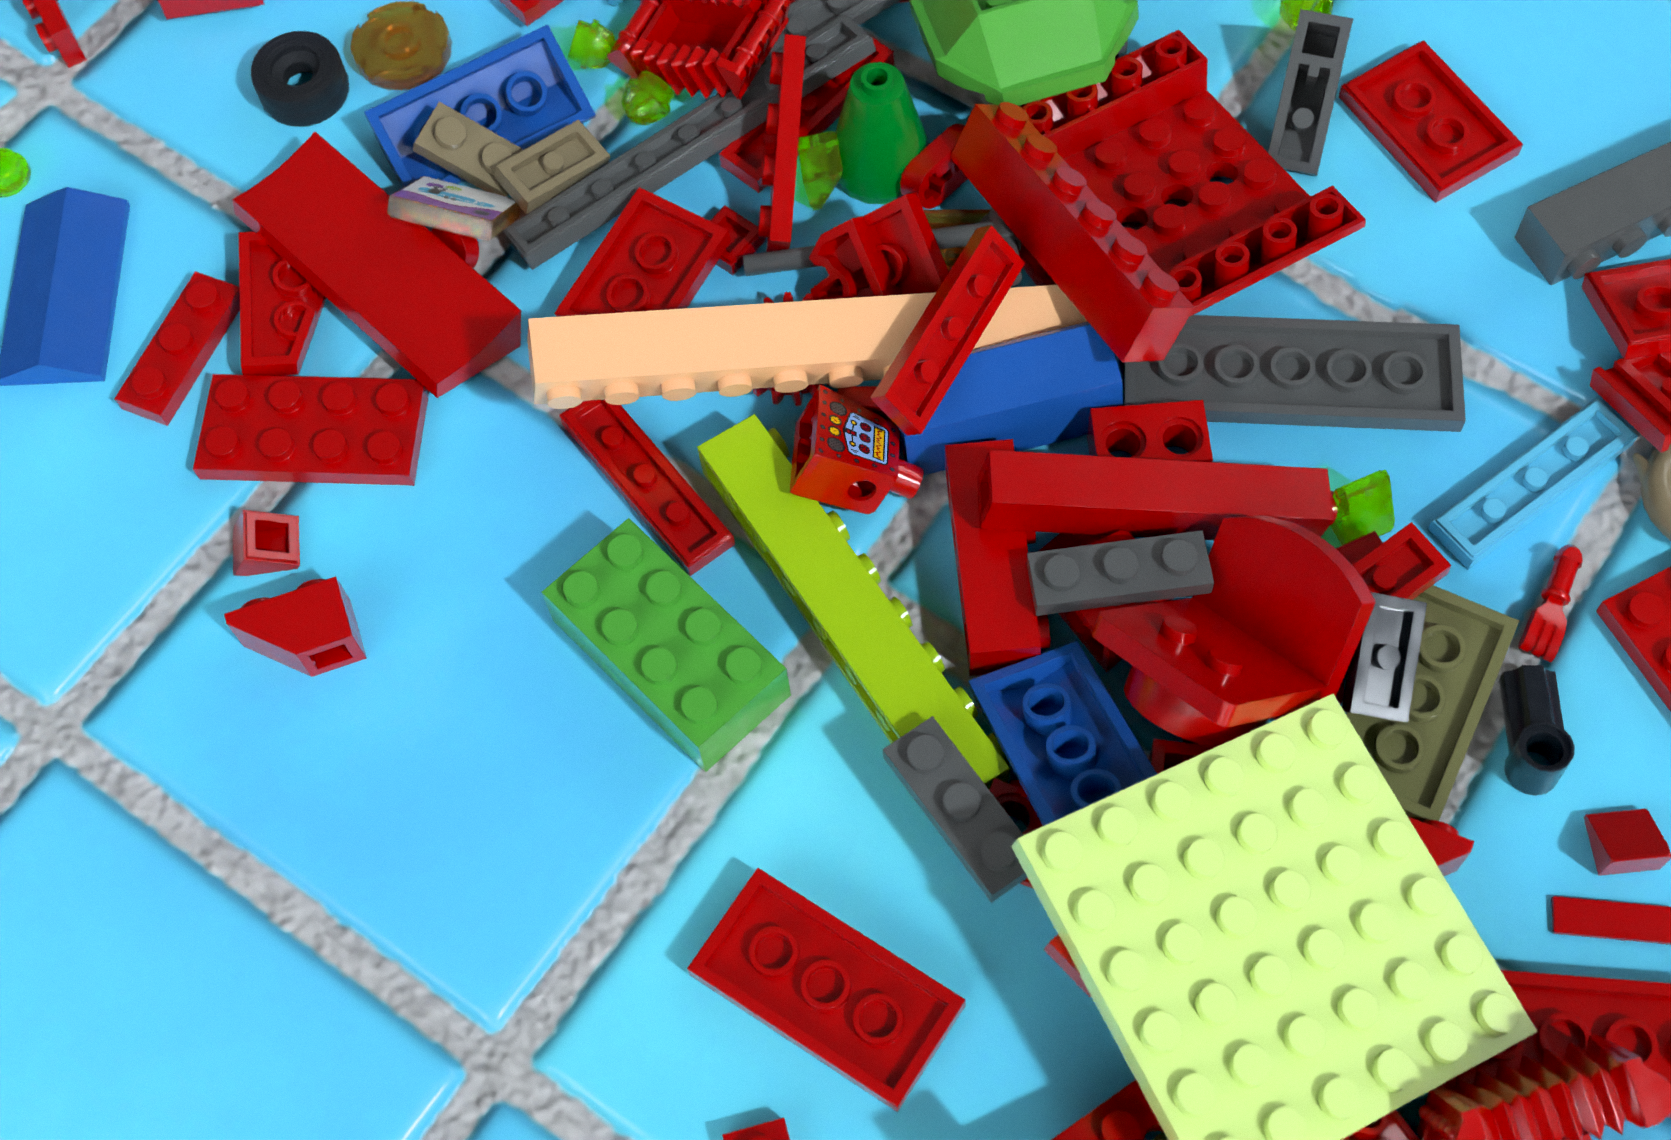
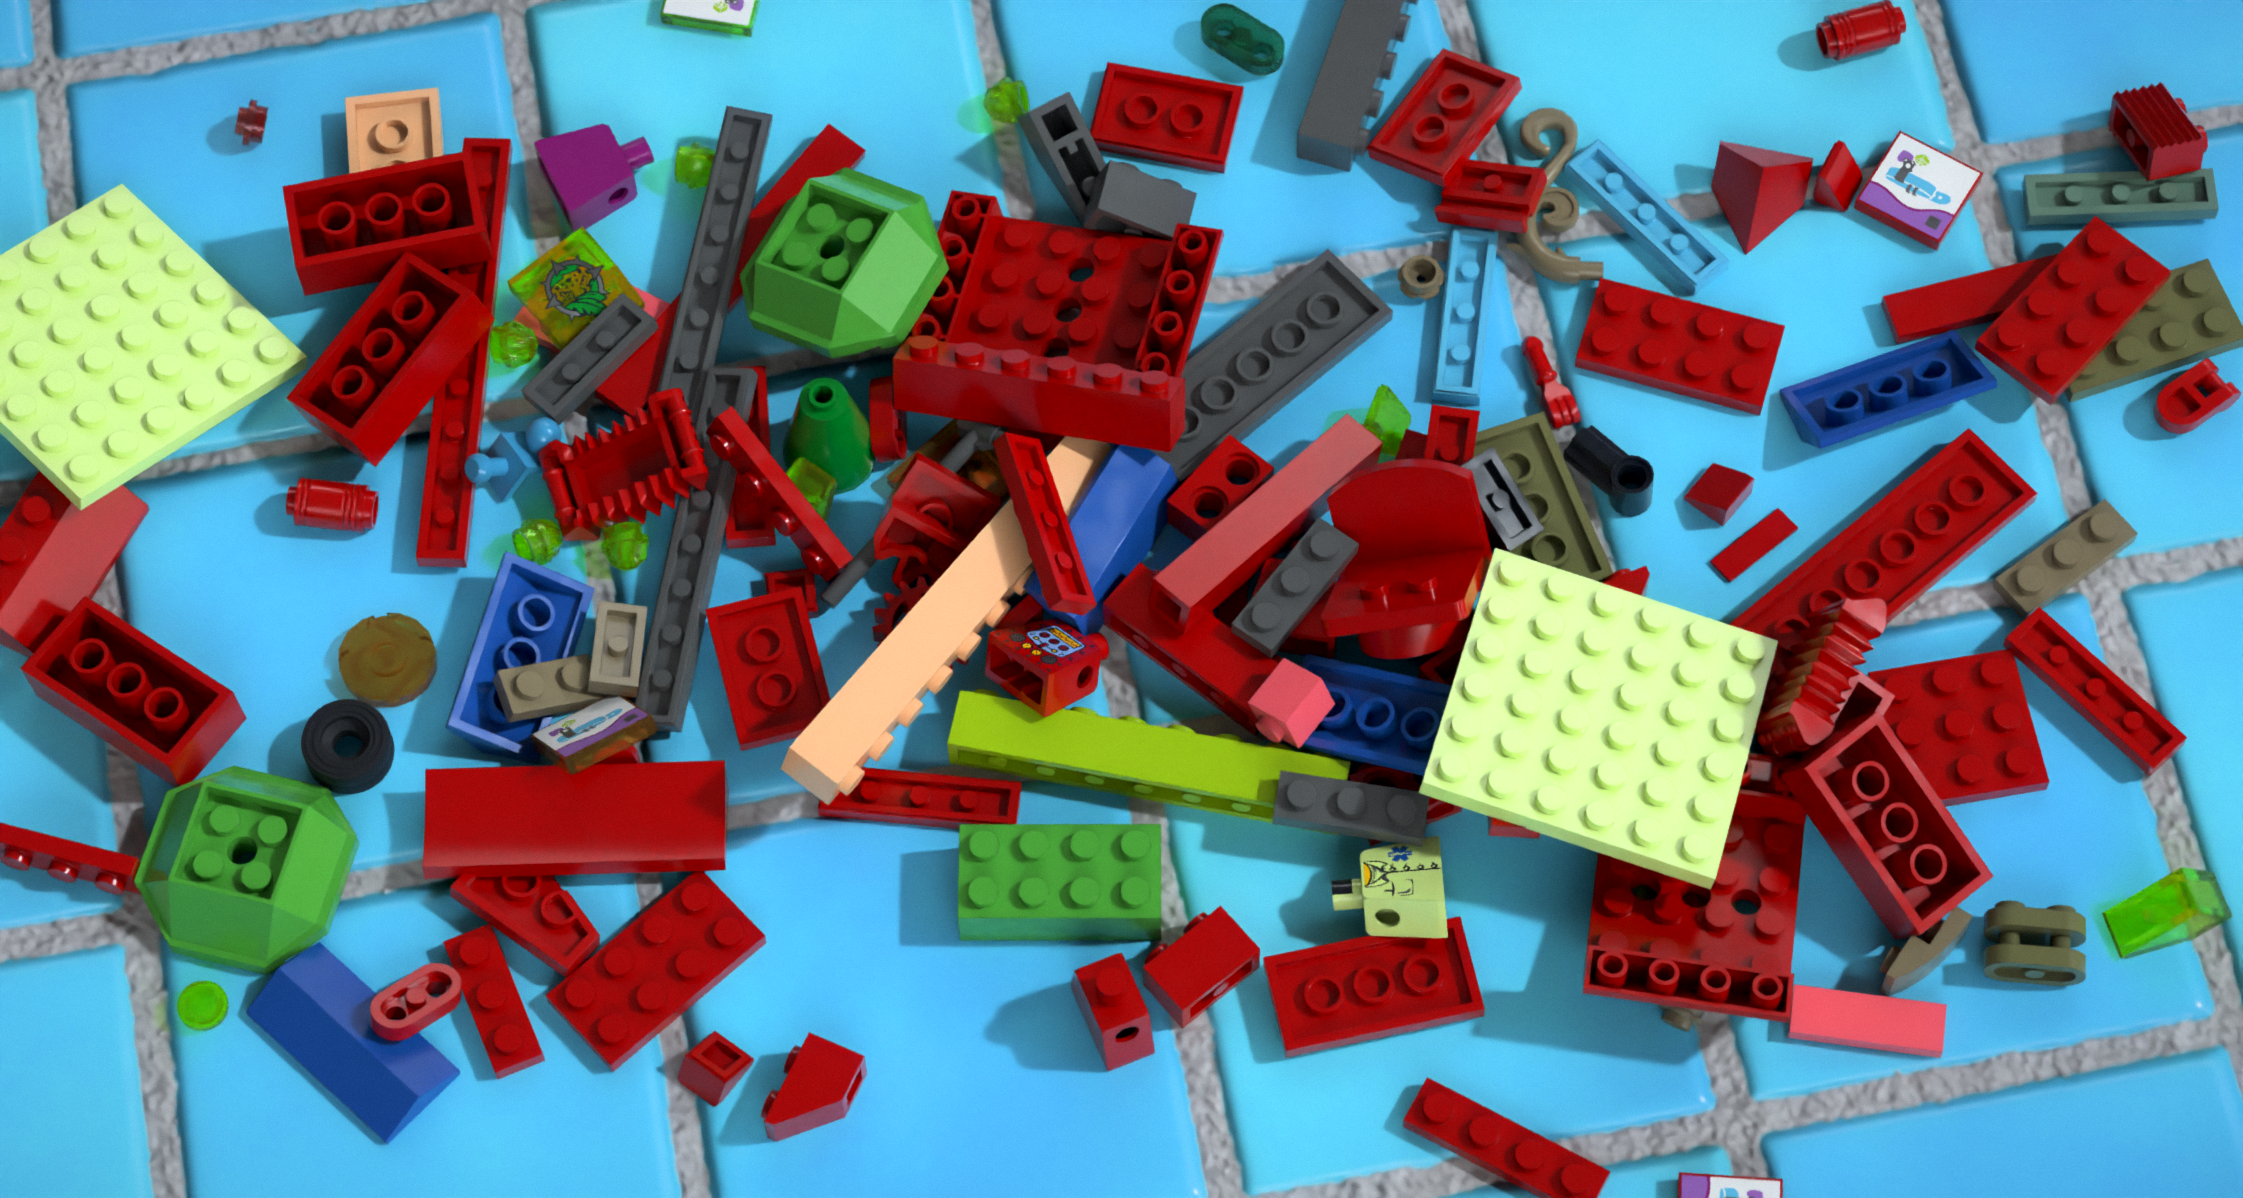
camera: 50 degrees left, 0 degrees up
(121, 294) = (412, 1004): none -> red plate
(140, 100) = (255, 910): none -> bright green piece
(587, 784) = (1109, 1005): none -> red torso
(700, 823) = (1200, 965): none -> red brick
(933, 924) = (1398, 890): none -> yellowish green torso
(1005, 668) = (1290, 704): none -> coral brick
(1322, 152) = (1137, 203): none -> dark grey brick
(1528, 406) = (1424, 267): none -> dark tan plate
(1565, 118) = (1246, 39): none -> clear green plate

